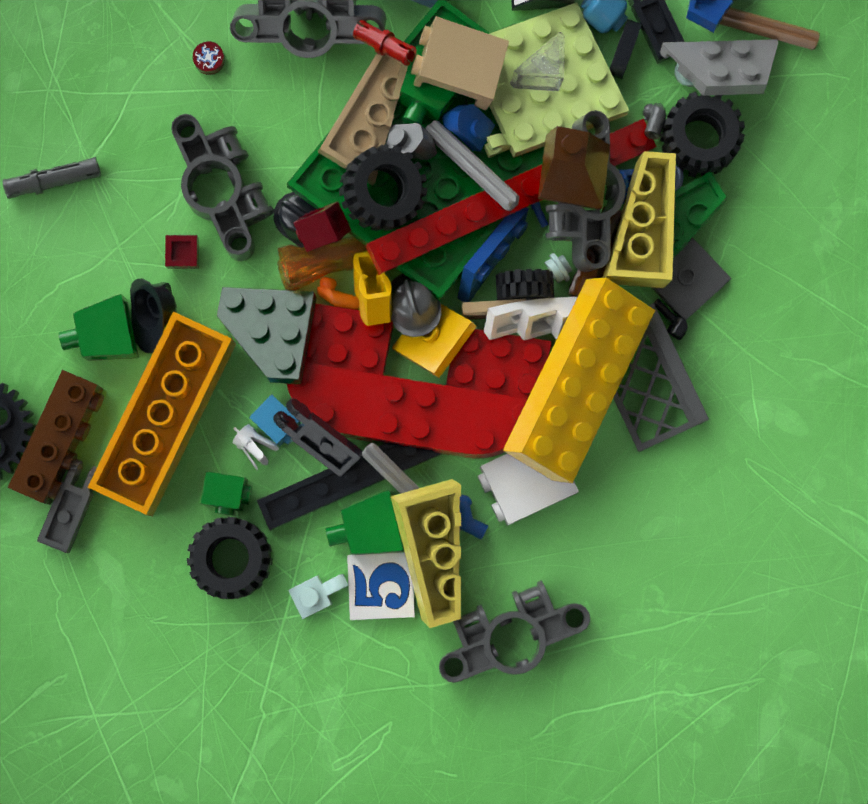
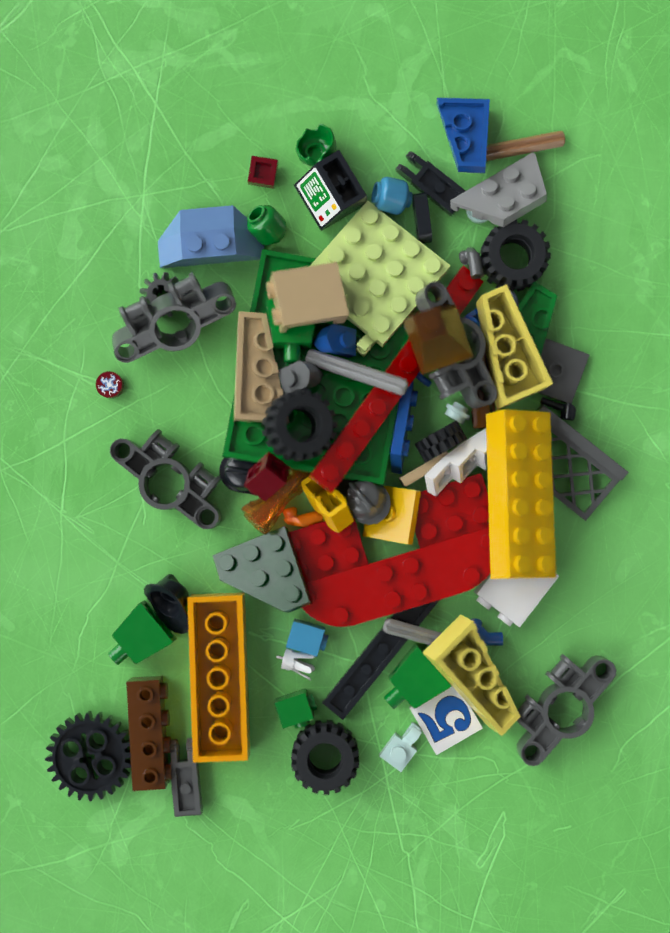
camera: 25 degrees left, 5 degrees up
(37, 181) = (31, 545): dark grey pin -> none
(181, 251) = (168, 544): dark red plate -> none
(318, 438) = (345, 637): black hinge -> none
(384, 42) = (241, 310): red pin -> none
(543, 69) = (374, 267): clear slope -> none

